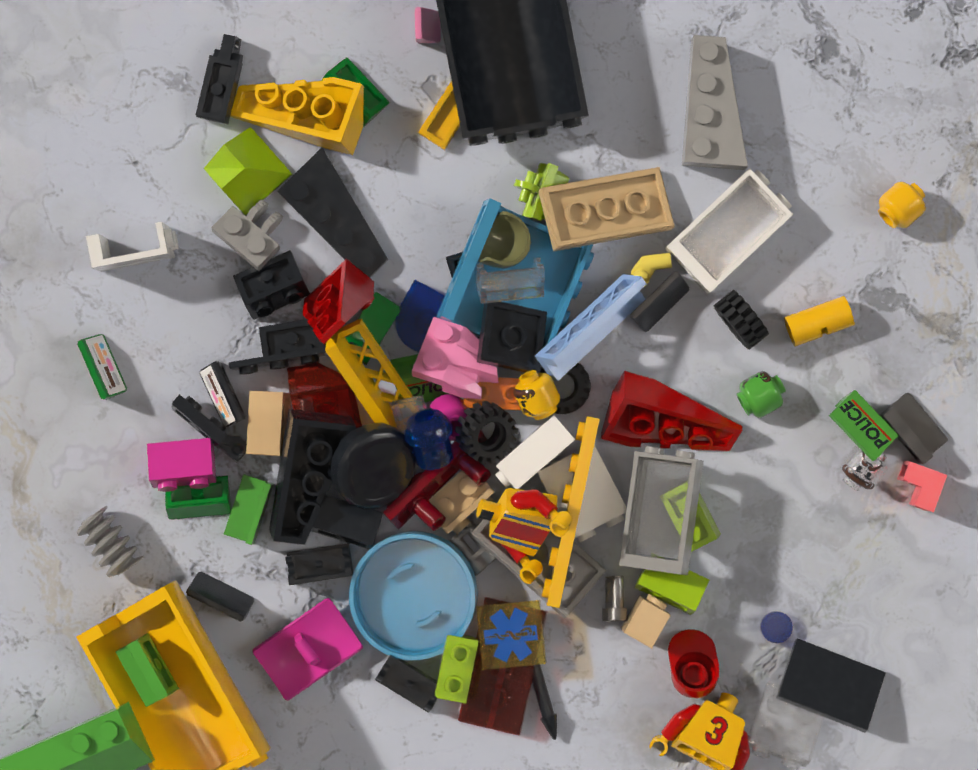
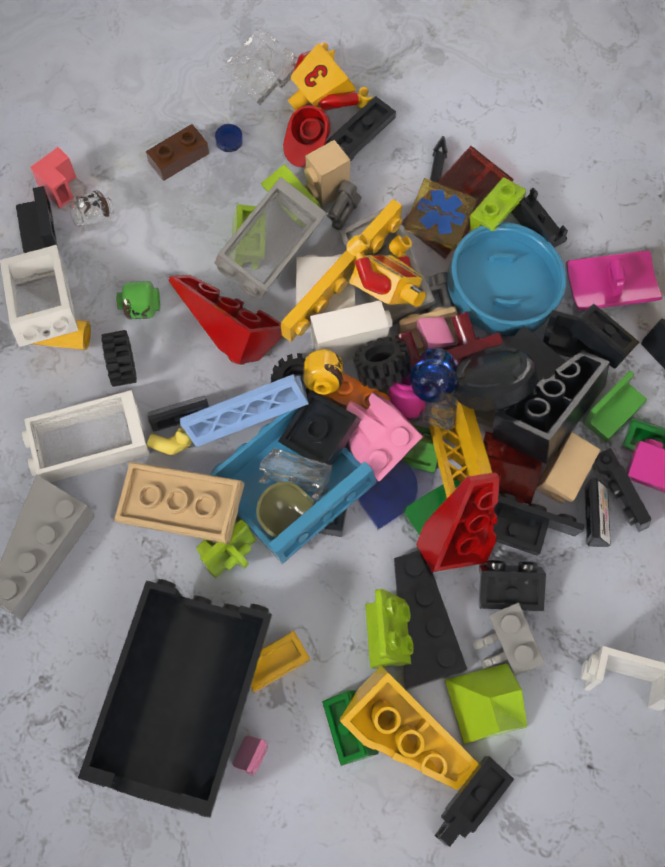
camera: 155 degrees left, 20 degrees down
(289, 570) = (604, 335): none -> black slope
(359, 186) = (388, 631): none -> lime bracket
(453, 497) = (434, 332): none -> bright pink slope
(643, 702) = (364, 126): none -> black plate
(817, 580) = (177, 152): none -> reddish brown piece
(830, 685) = (211, 78): black tile -> none
(854, 341) = (38, 296): none -> white window
(863, 425) = (72, 236): bright green panel -> none

